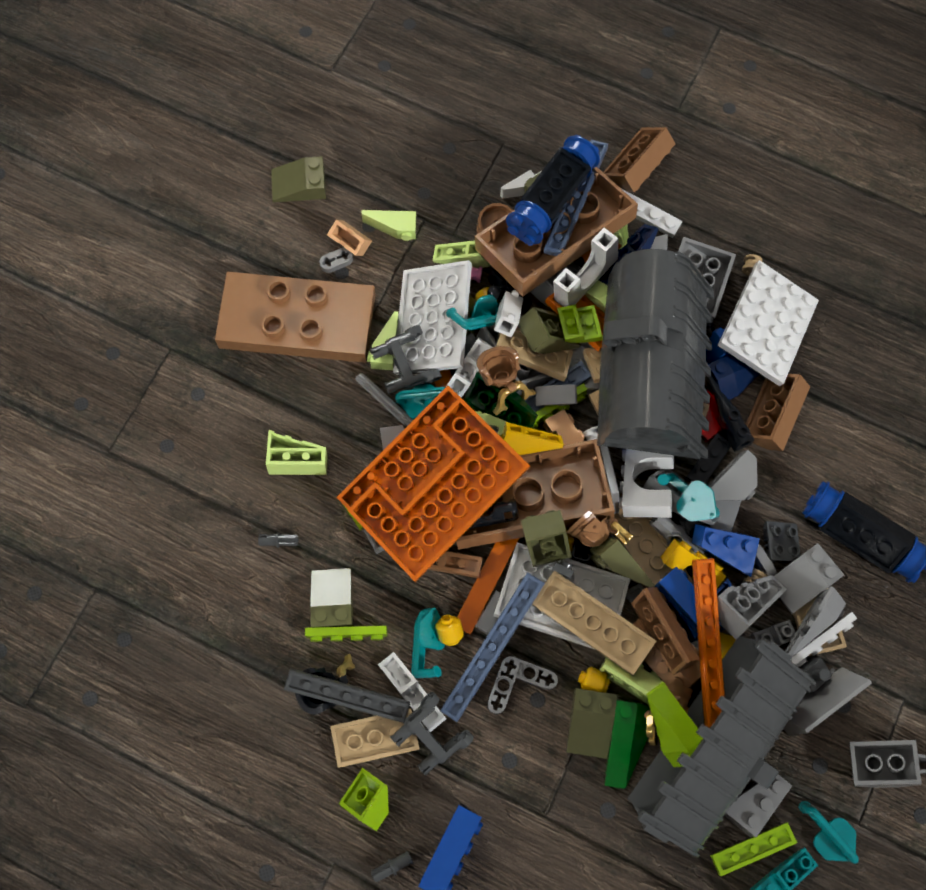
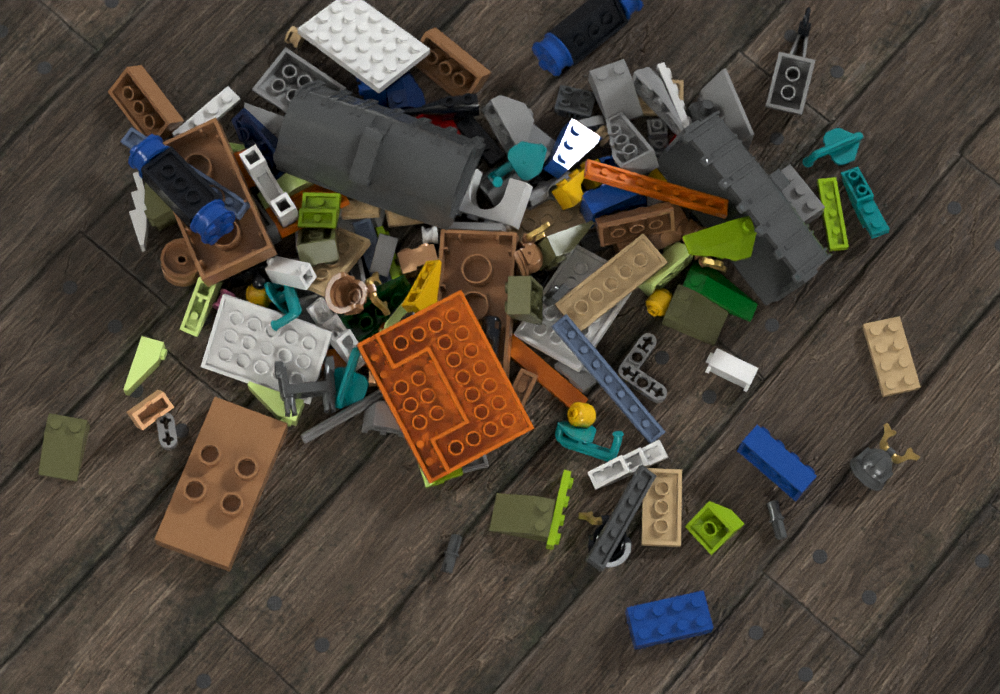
camera: 80 degrees left, 0 degrees up
(255, 774) = (669, 620): none -> blue brick
(294, 457) = (373, 517): yellowish green wedge -> none
(413, 726) = (662, 465): dark grey connector -> none
(543, 776) = (731, 368): none -> white brick

